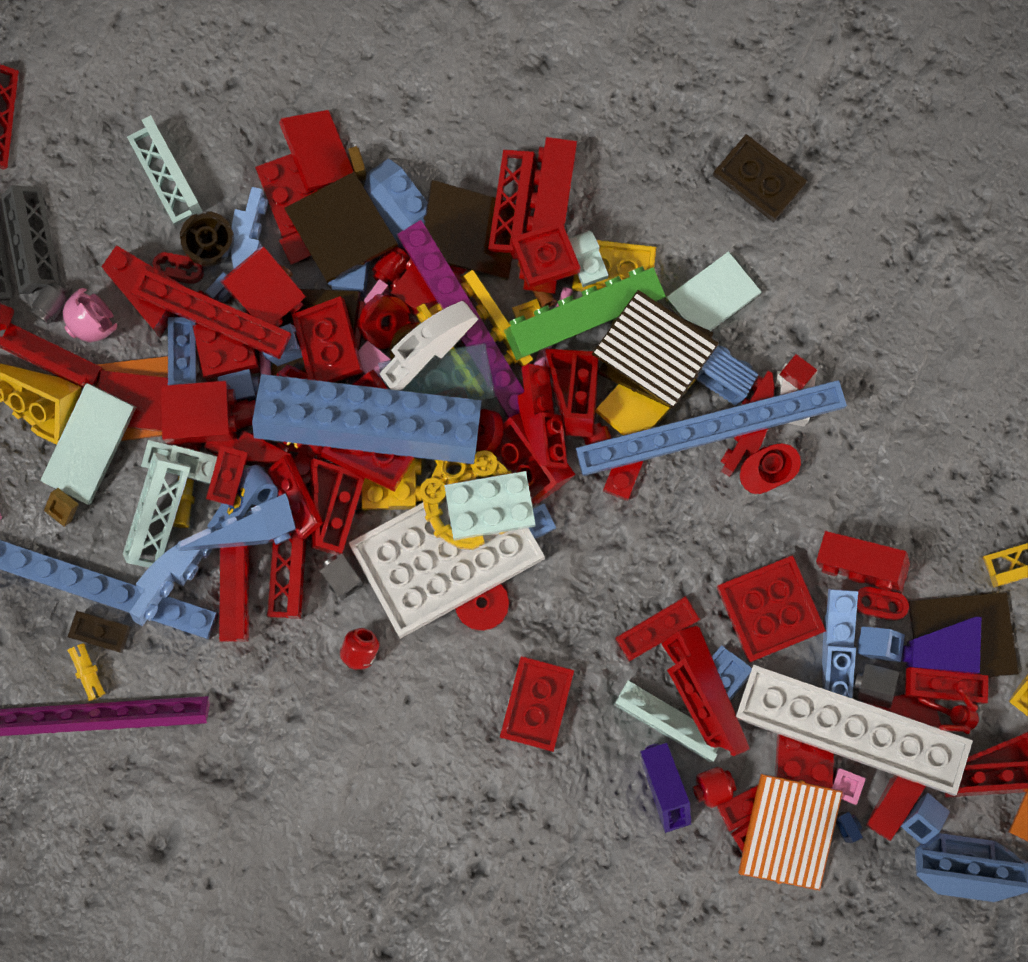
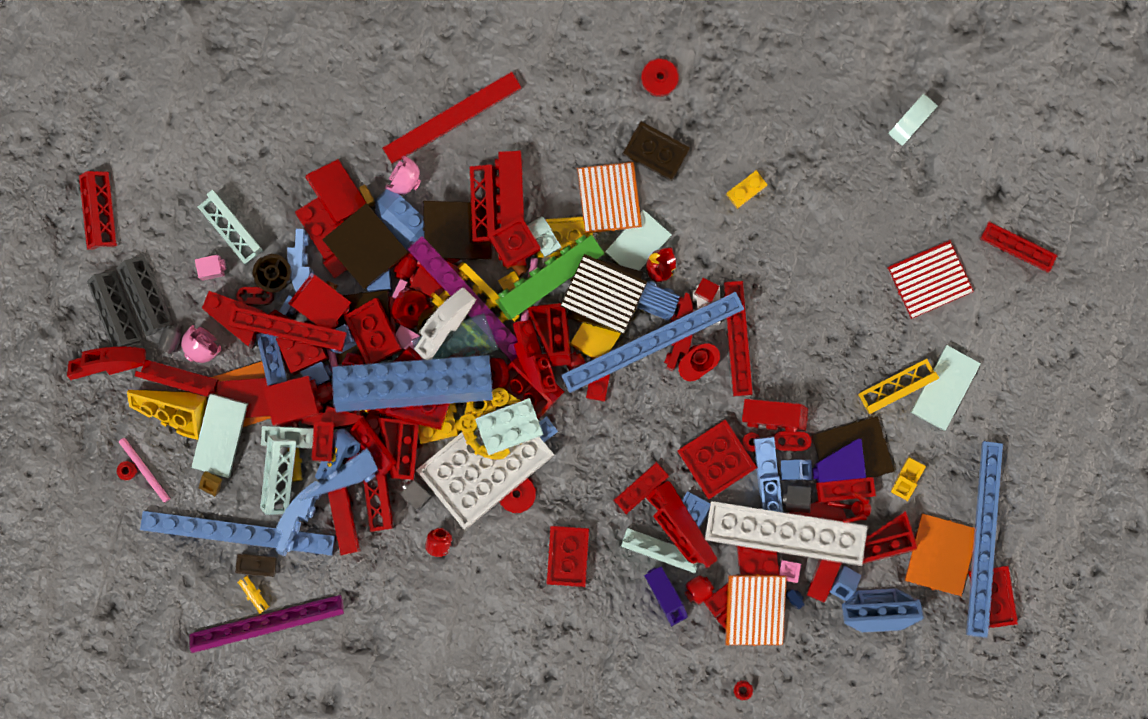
camera: 10 degrees left, 5 degrees up
(126, 218) = (210, 267): none -> bright pink brick
(413, 148) = (404, 177): none -> bright pink cylinder
(491, 85) = (452, 118): none -> red tile
(685, 227) = (609, 197): none -> piece
(740, 327) = (661, 264): none -> red hair
(760, 949) = (745, 696): none -> red plate
(781, 96) = (657, 86): none -> red plate
(815, 593) = (745, 442): none -> red plate
(828, 459) = (738, 344): none -> red plate
(874, 251) = (746, 189): none -> yellow plate

